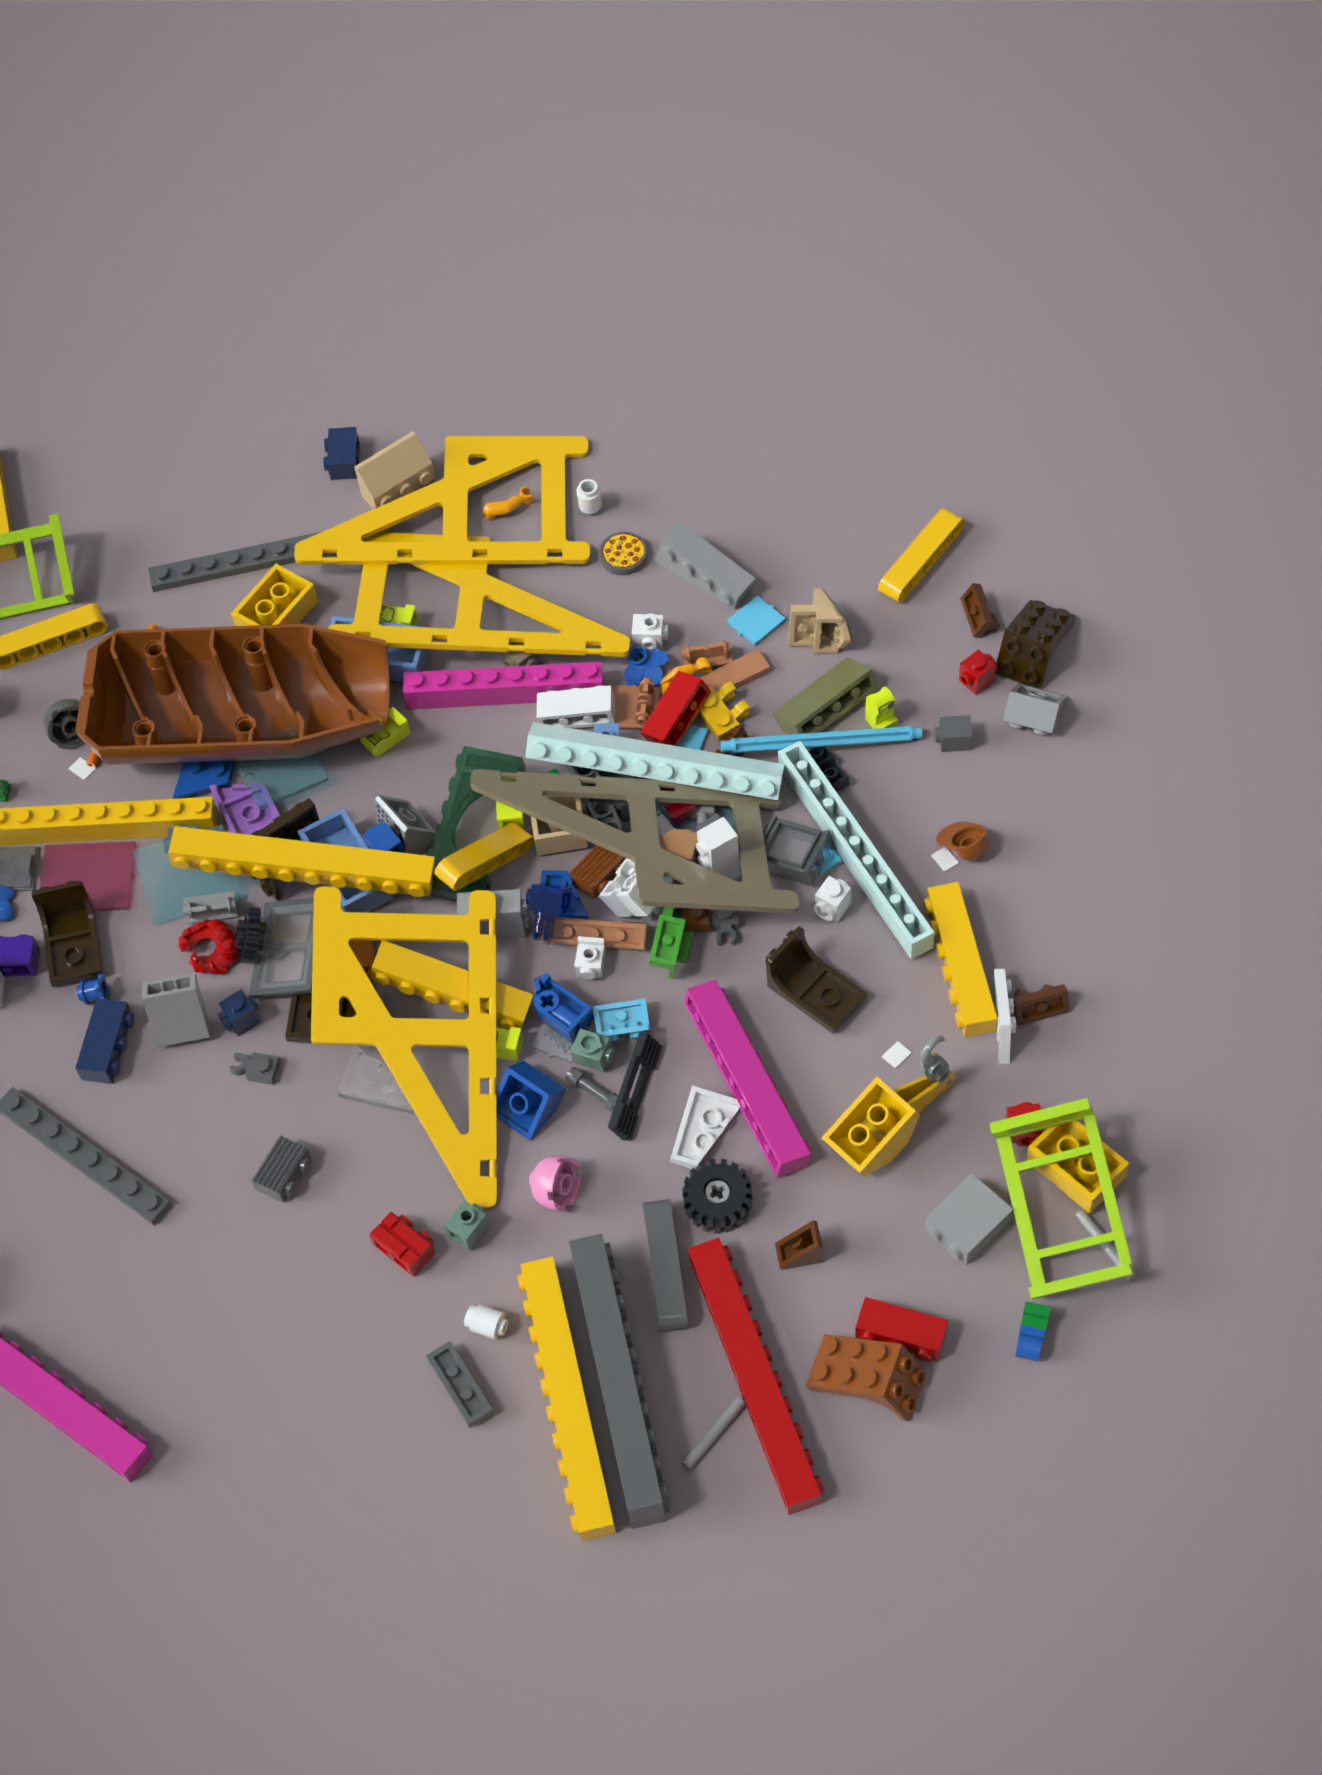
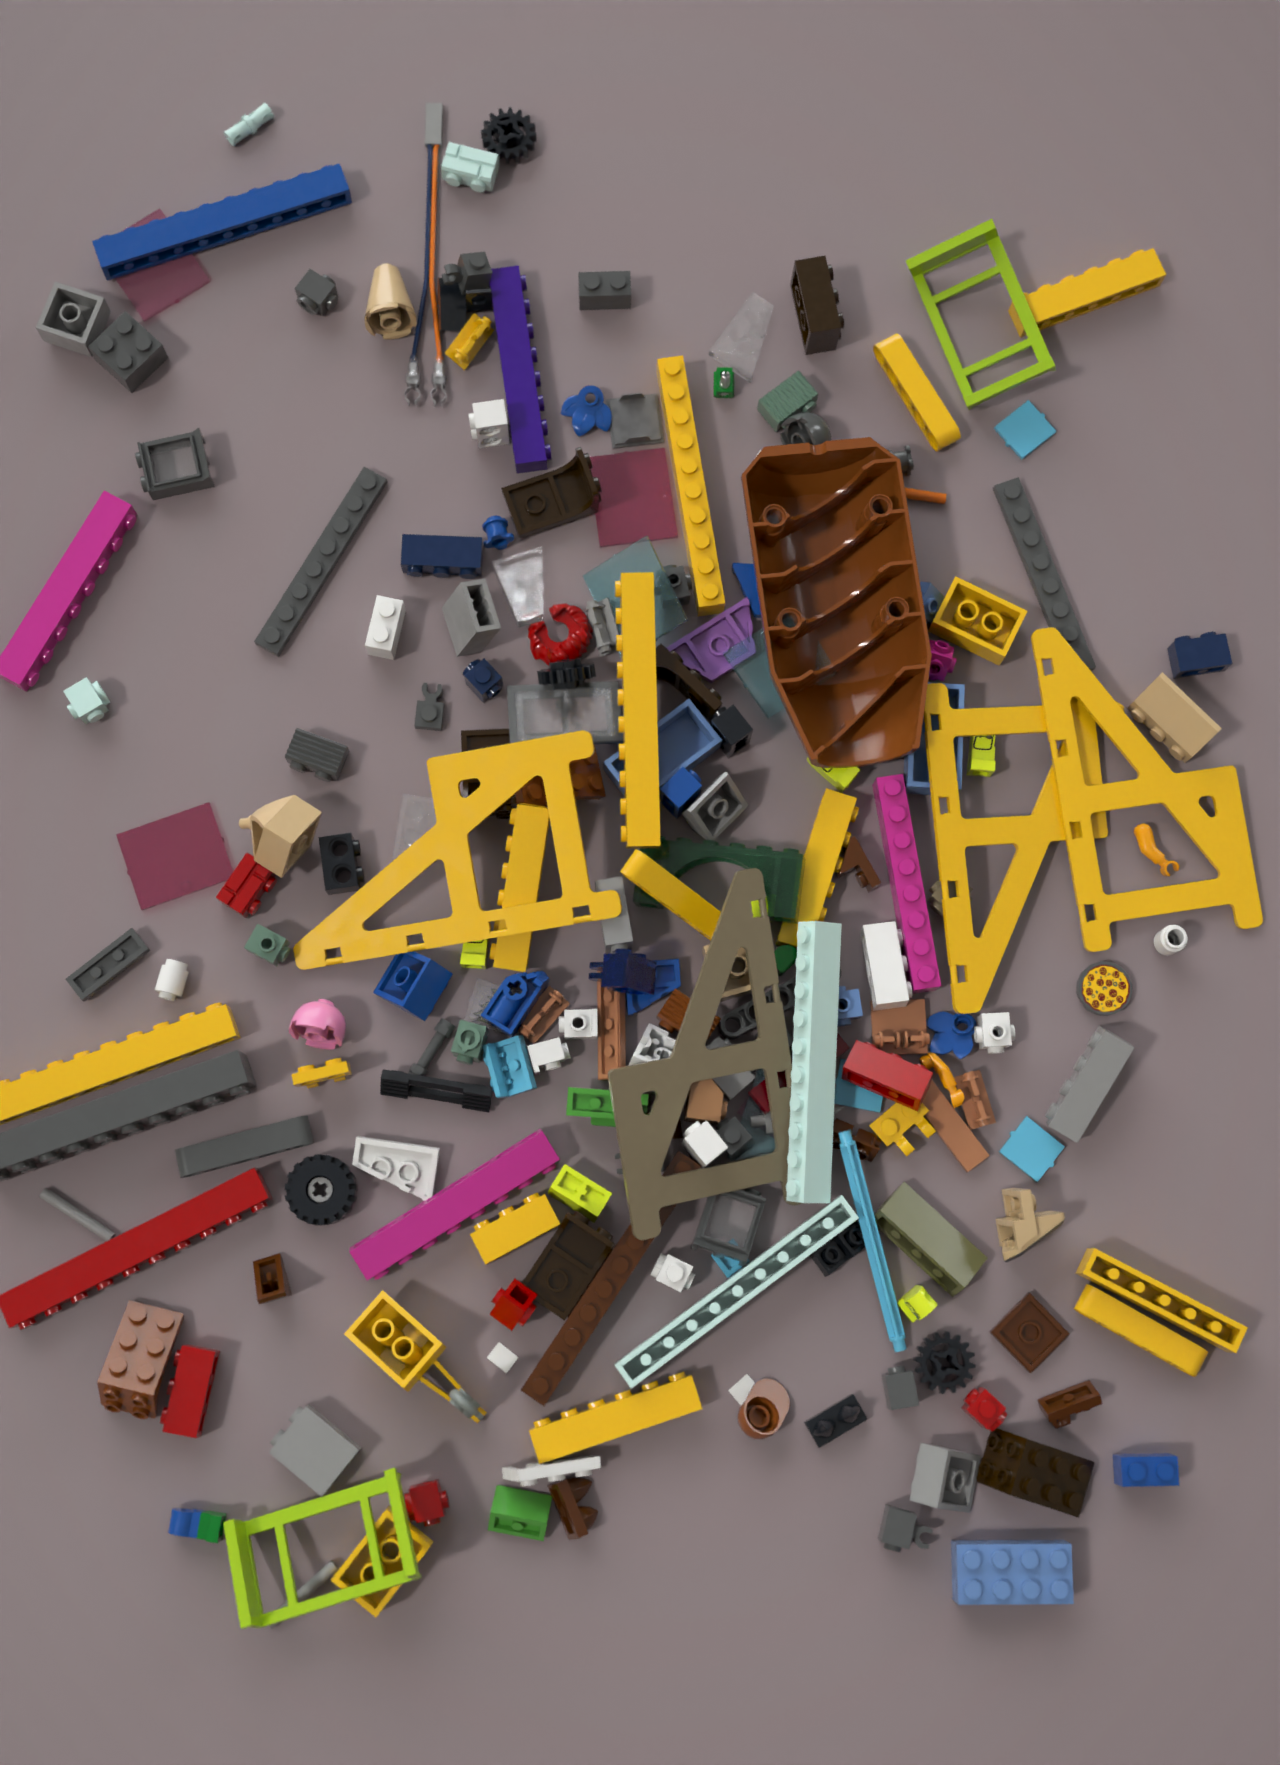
camera: 70 degrees right, 20 degrees up
(28, 737) = (786, 400): none -> sand green brick
(105, 561) = (1025, 429): none -> medium azure piece
(152, 966) = (523, 585): none -> clear wing
(166, 1096) = (385, 627): none -> white brick
(177, 1386) = (87, 701): none -> light aqua brick
(333, 797) = (732, 729): none -> black brick
(355, 1195) = (282, 832): none -> tan piece
(358, 1316) = (175, 856): none -> clear pink piece
(395, 1162) = (334, 865): none -> black brick
(446, 740) = (822, 860): none -> yellow brick
(475, 722) = (855, 859): none -> reddish brown slope
(576, 986) = (543, 1014): none -> nougat hinge
(602, 1173) = (311, 1076): none -> yellow plate
(614, 985) = (548, 1054): none -> white brick
(747, 972) = (579, 1193): none -> neon yellow hinge
(775, 1028) = (514, 1227): none -> yellow brick
(848, 1031) = (513, 1305): none -> red brick
(882, 985) = (595, 1302): none -> reddish brown brick
(896, 535) = (1161, 1300): none -> yellow brick
(915, 637) = (1029, 1332): none -> reddish brown tile
(934, 698) = (939, 1374): none -> black gear
(978, 788) = (835, 1420): none -> black tile
(1039, 562) = (1145, 1469): none -> blue brick
(1042, 1046) = (519, 1512): none -> bright green panel
(1076, 745) = (899, 1528): none -> dark grey brick
(1118, 665) = (1011, 1572): none -> medium blue piece

